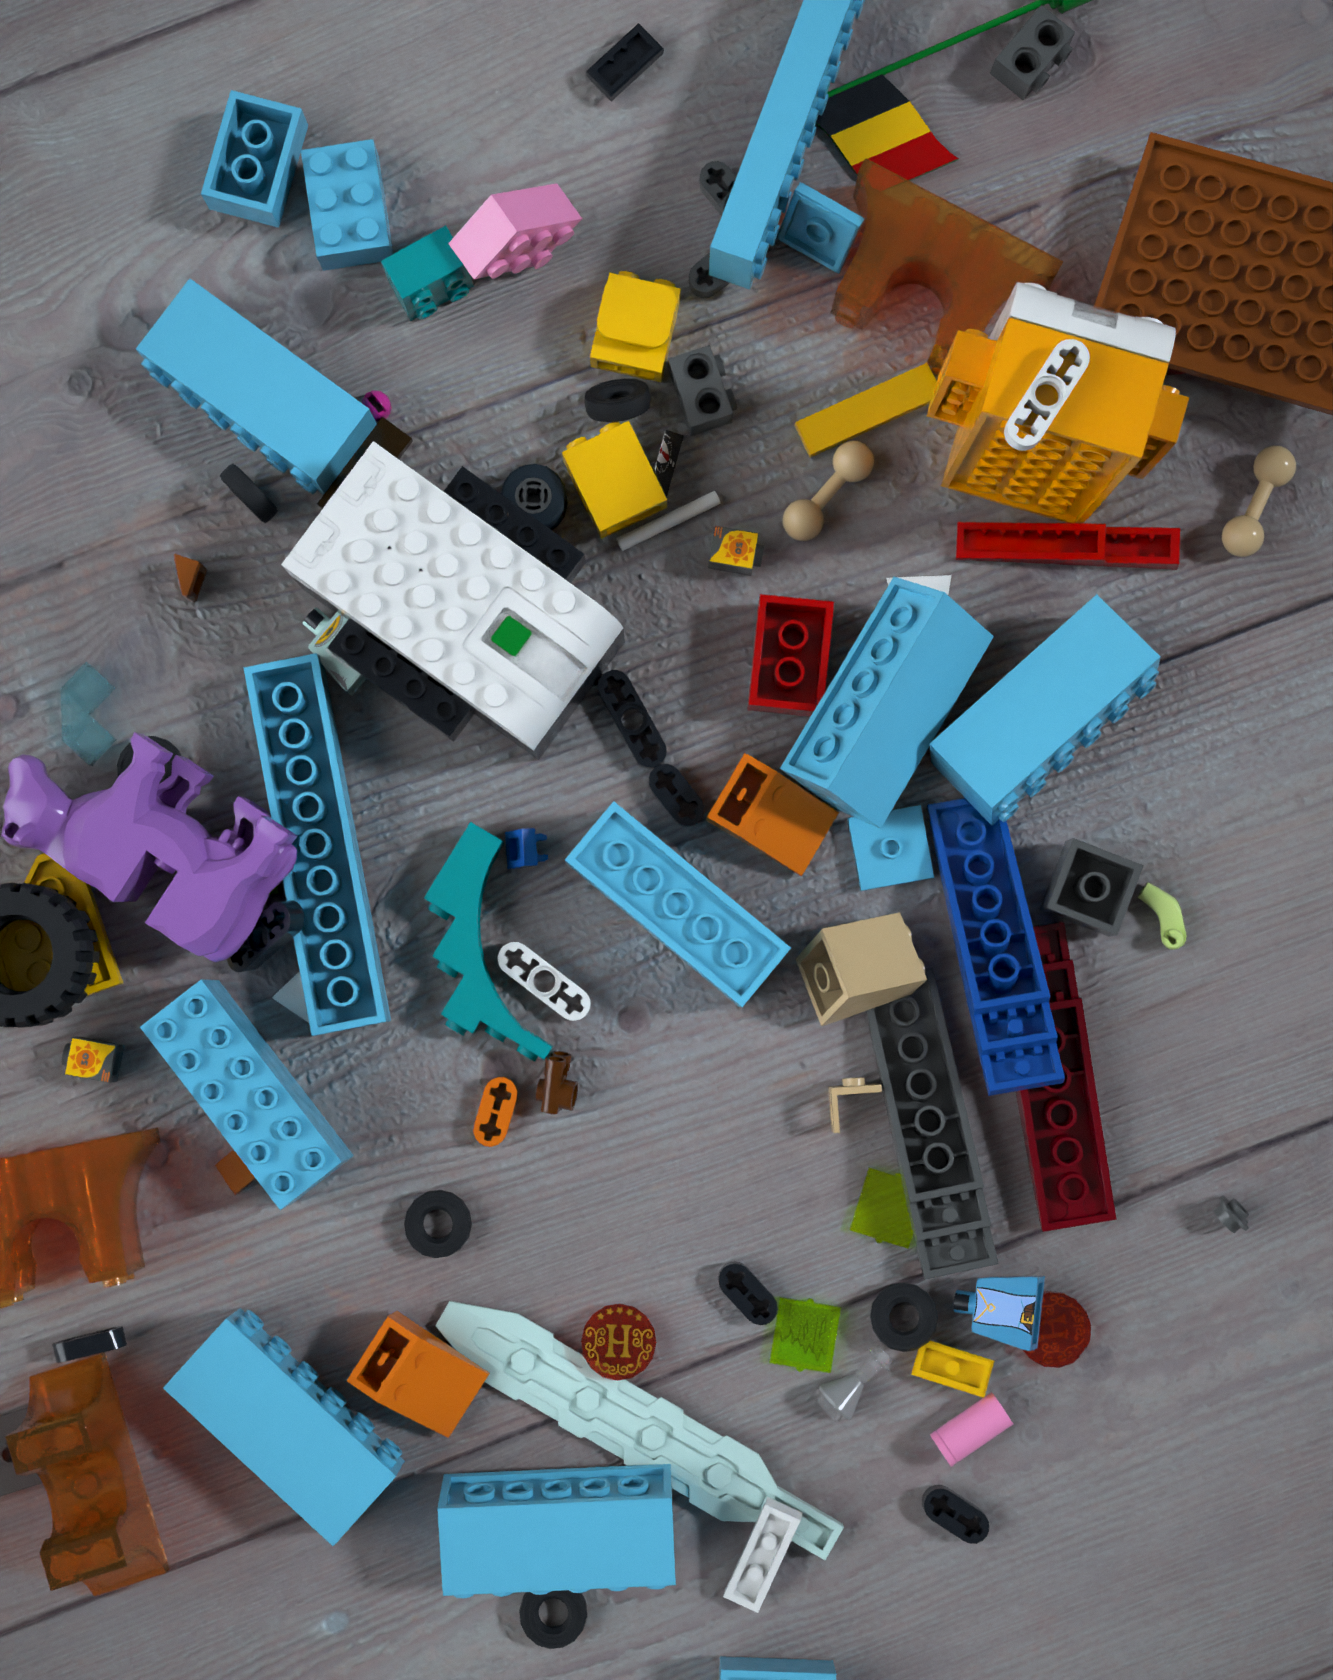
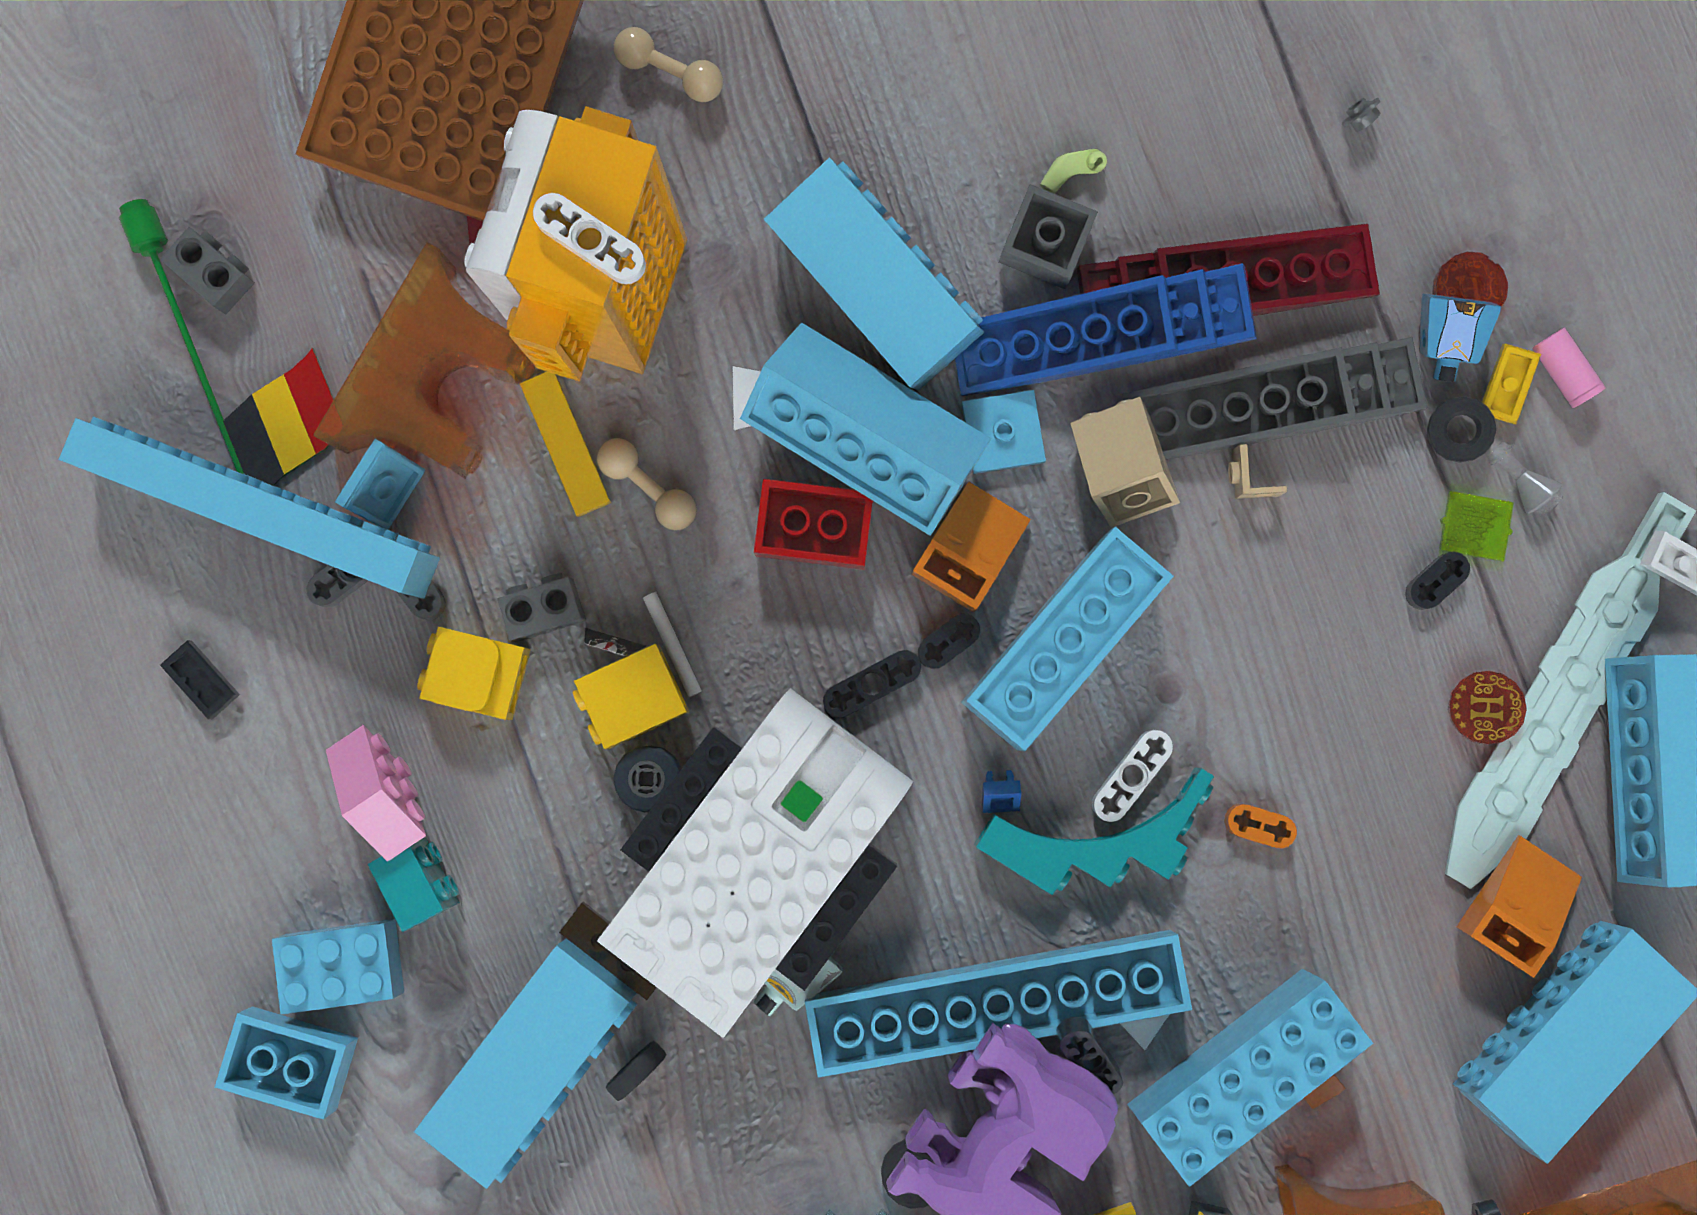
camera: 85 degrees left, 0 degrees up
(190, 576) = (719, 1132): dark orange slope -> none
(382, 399) = (540, 932): dark pink hinge -> none
(418, 1236) = (1393, 891): black tyre -> none
(555, 1090) = (1240, 766): reddish brown plate -> none
(617, 400) = (558, 707): black tyre -> none
(735, 551) = (705, 577): brick -> none
(883, 1209) = (1355, 448): clear neon green piece -> none
(959, 1506) = (1653, 390): black beam -> none
(1069, 544) = (705, 250): red slope -> none

